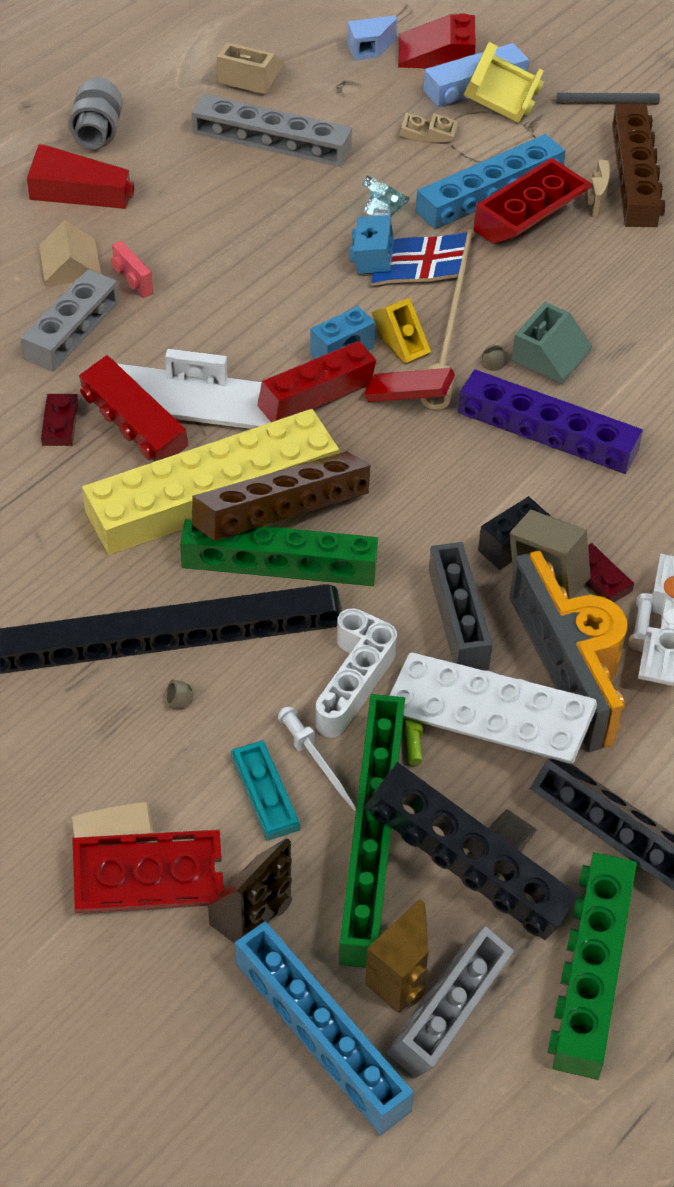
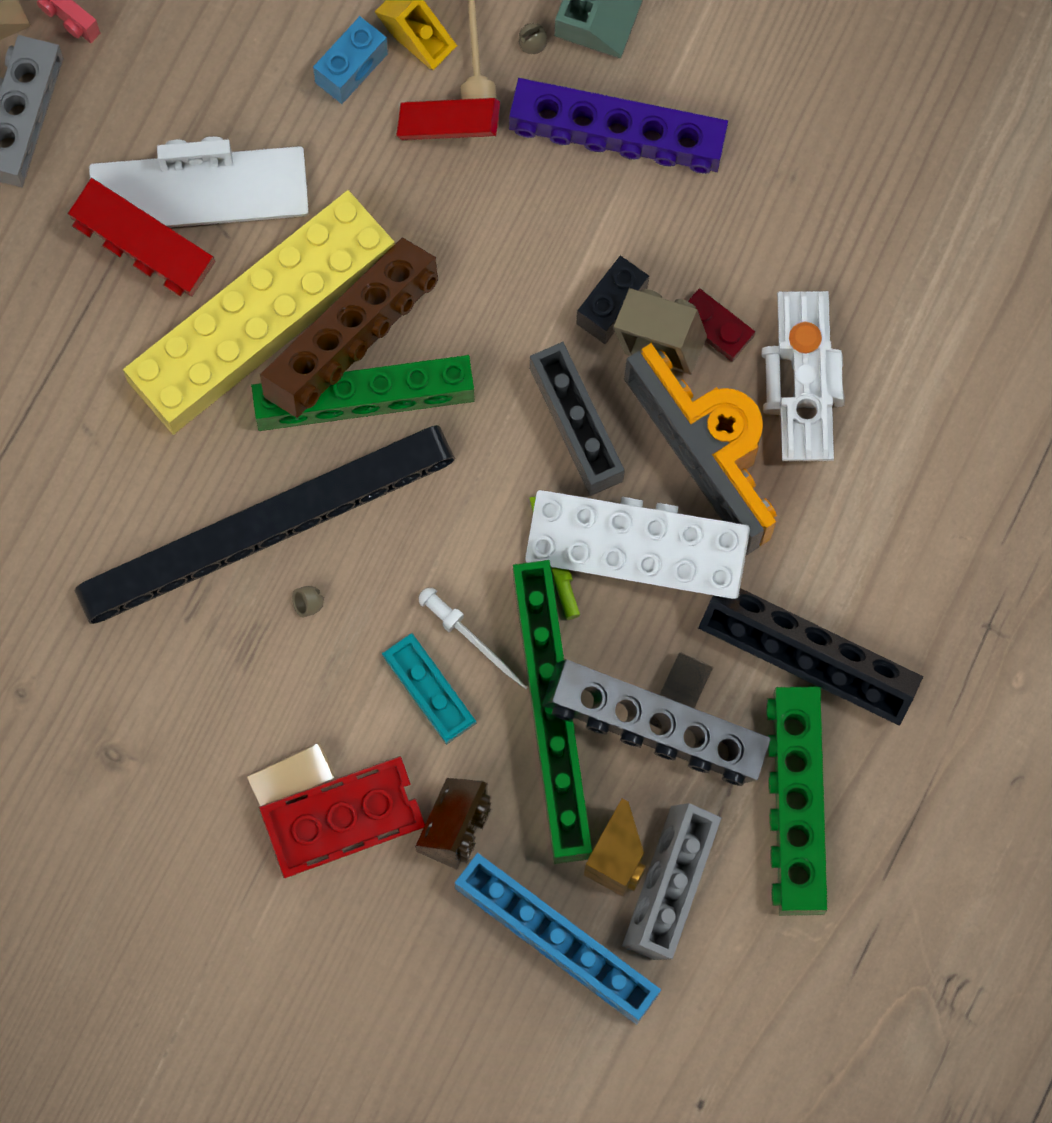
camera: 15 degrees left, 25 degrees up
(59, 420) = (56, 261): dark red plate -> none
(316, 382) = (340, 142): red brick -> none
(371, 653) = (483, 532): white beam -> none

